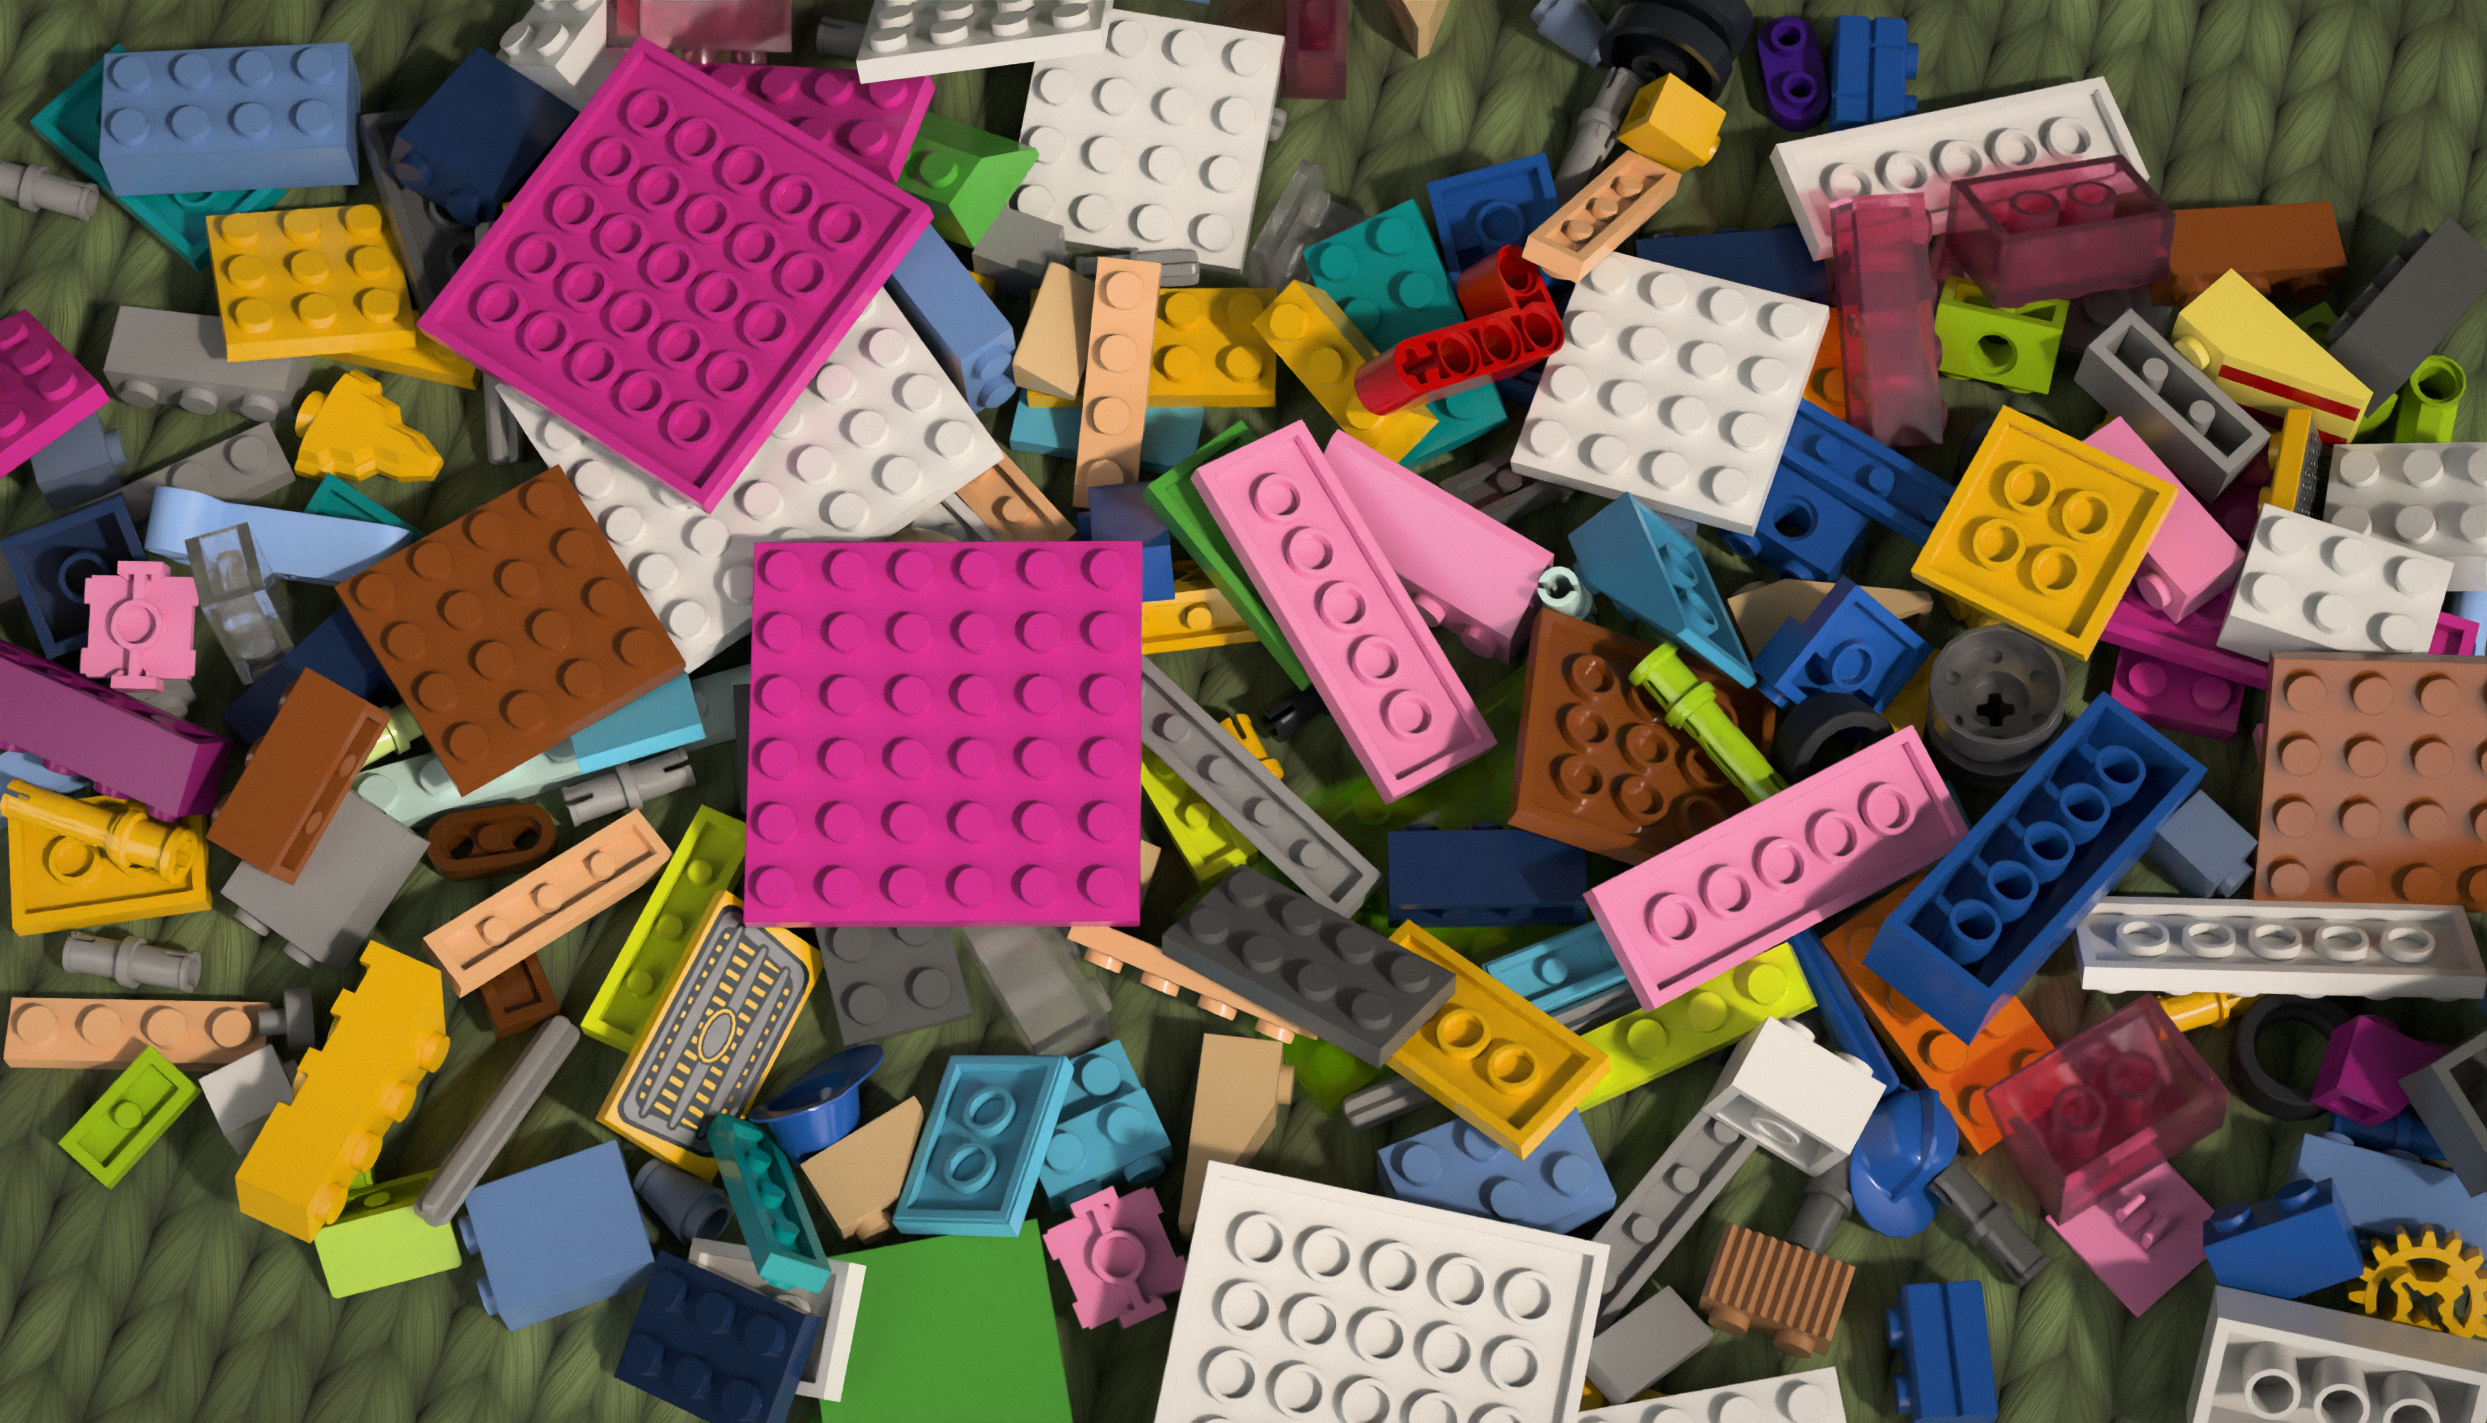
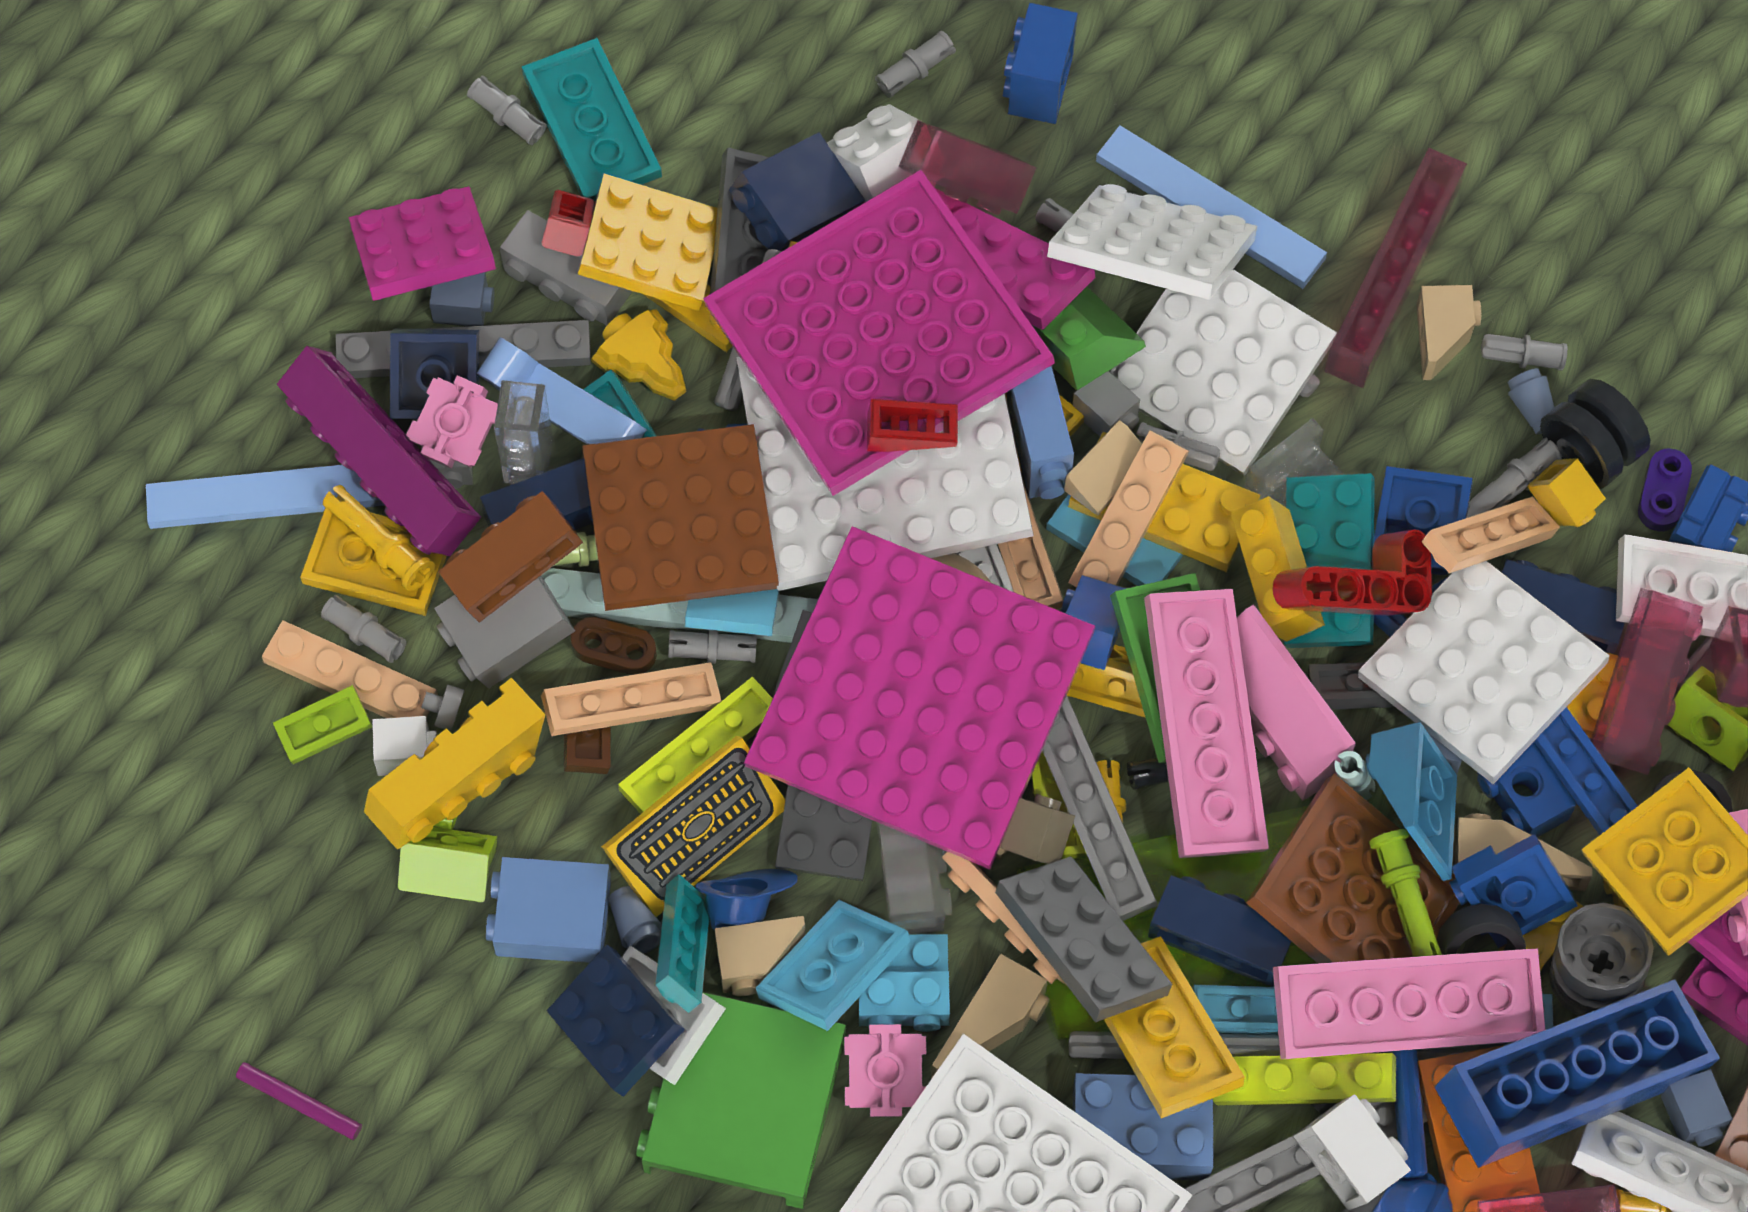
camera: 20 degrees right, 0 degrees up
(185, 300) = (568, 223): none -> slope
(230, 119) = (645, 117): medium blue brick -> none
(496, 1121) = (542, 822): light grey axle -> none
(767, 401) = (899, 440): none -> red slope
(1182, 845) = (1038, 830): none -> dark tan brick

